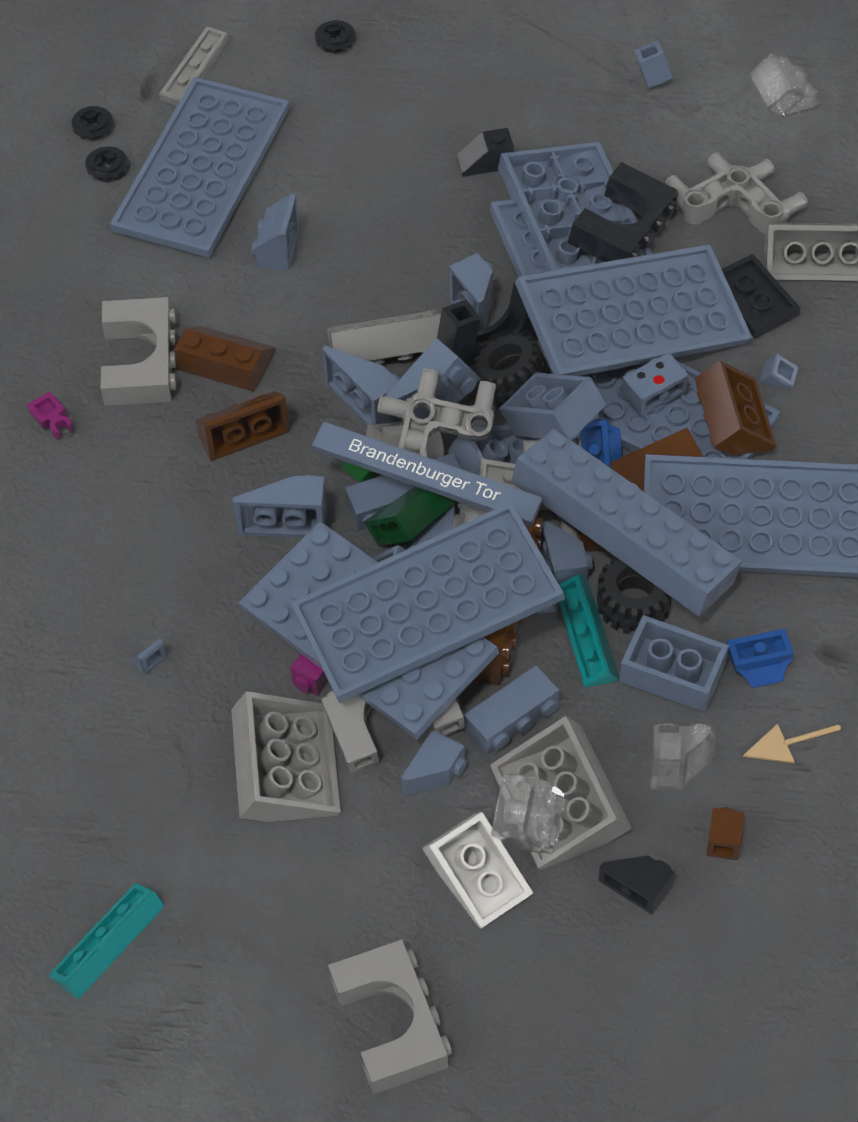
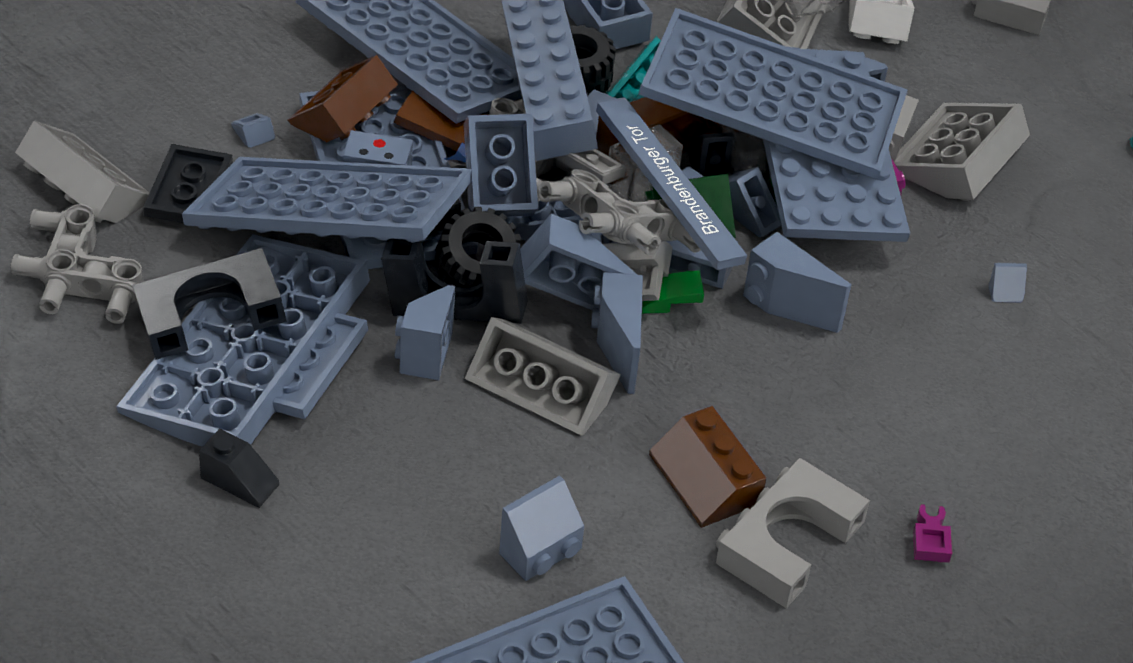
camera: 145 degrees left, 10 degrees down
(243, 425) = (759, 381): reddish brown slope -> none

